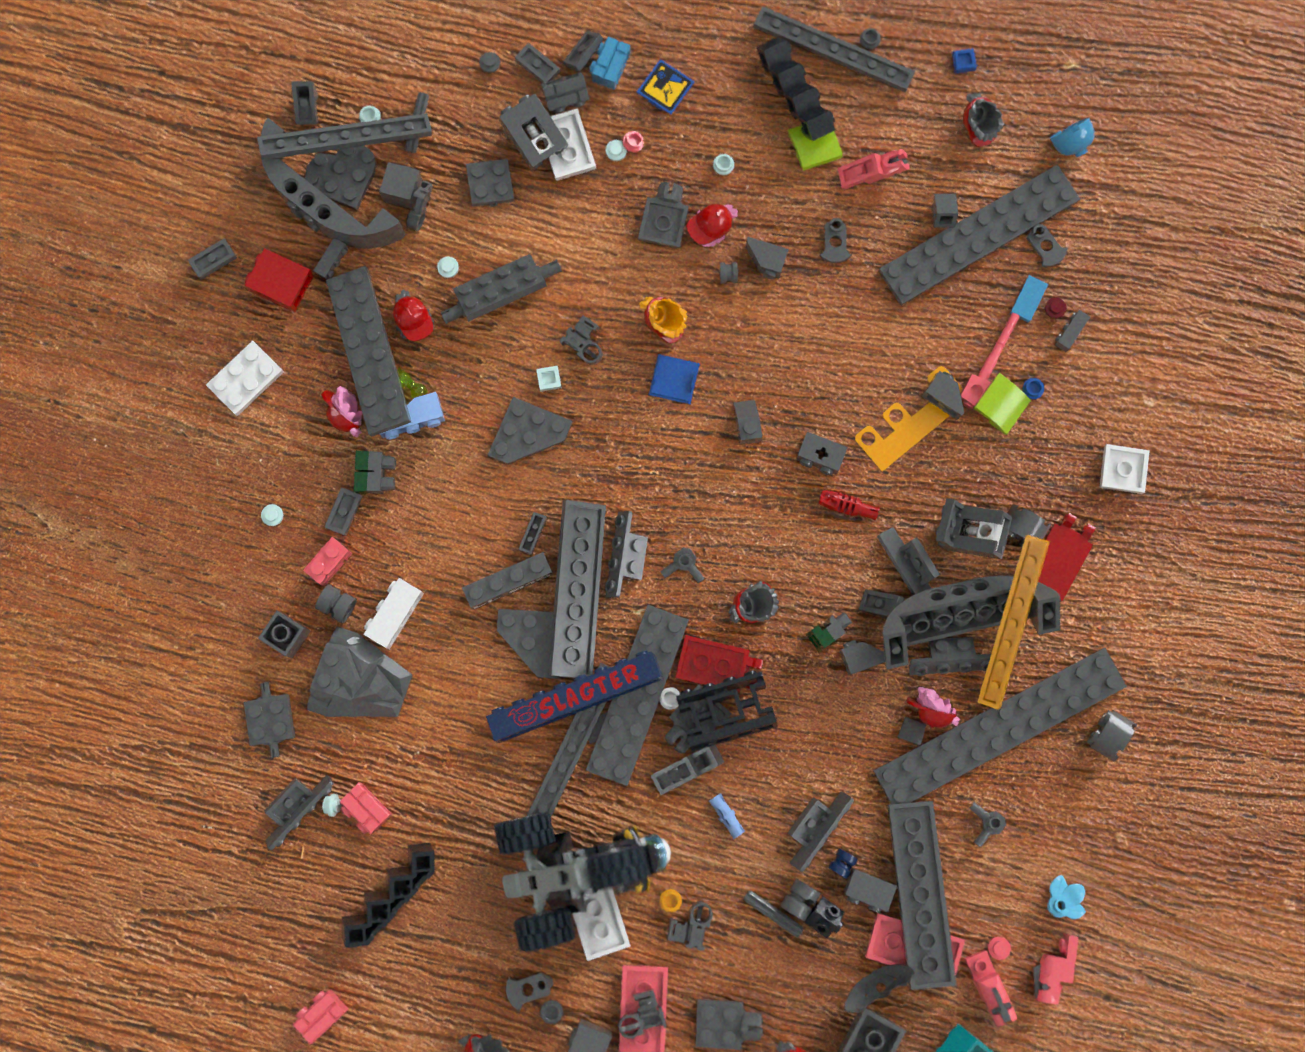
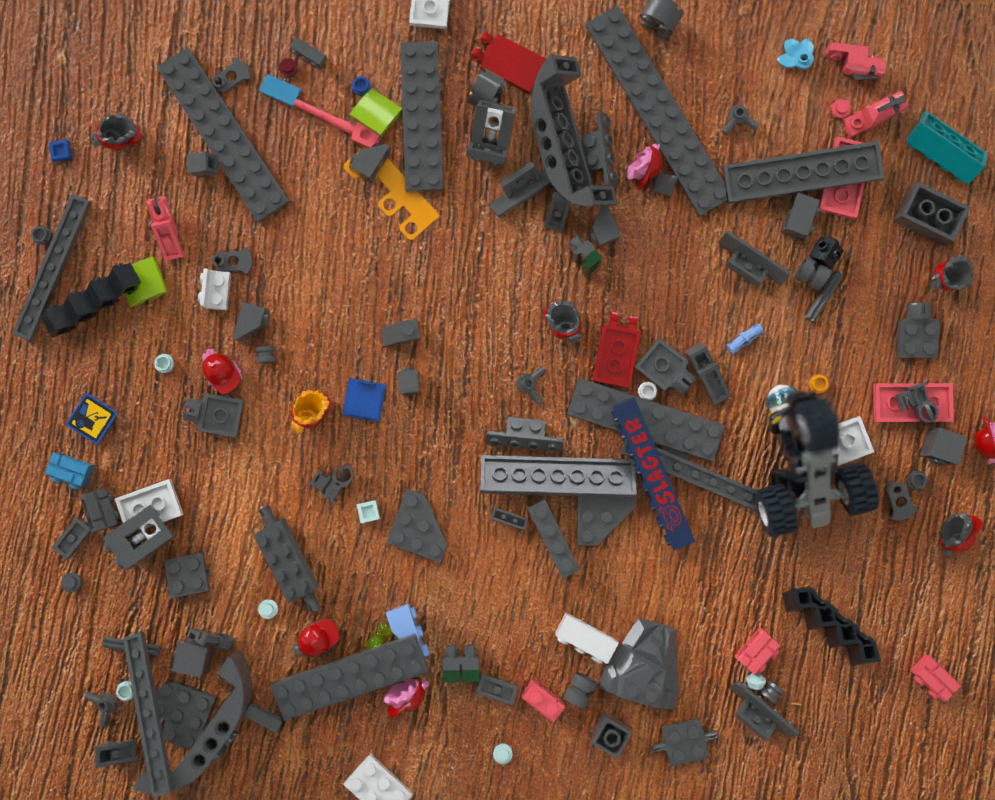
camera: 85 degrees left, 5 degrees up
(278, 280) = (285, 764): red brick -> none
(318, 823) = (772, 692): none -> dark grey wheel
(357, 94) = (105, 703): none -> dark grey piece
(583, 50) = (58, 495): dark grey plate -> none
(615, 150) = (153, 461): light aqua plate -> none
(633, 141) = (145, 446): coral plate -> none
(690, 932) = (844, 366): dark grey piece -> none
(691, 427) = (409, 382): none -> dark grey slope
(733, 727) = (675, 335): black fence -> none
(803, 220) = (214, 289): none -> white bracket
(832, 454) = (426, 256): dark grey brick -> none
(839, 867) = (779, 239): dark blue wheel -> none
(847, 504) = (471, 243): red hinge -> none
(868, 984) = (894, 219): dark grey piece -> none
(997, 455) = (421, 116): none -> dark grey plate
(1013, 621) = (571, 95): light orange plate -> none
(1074, 138) = (132, 51): dark azure cylinder -> none

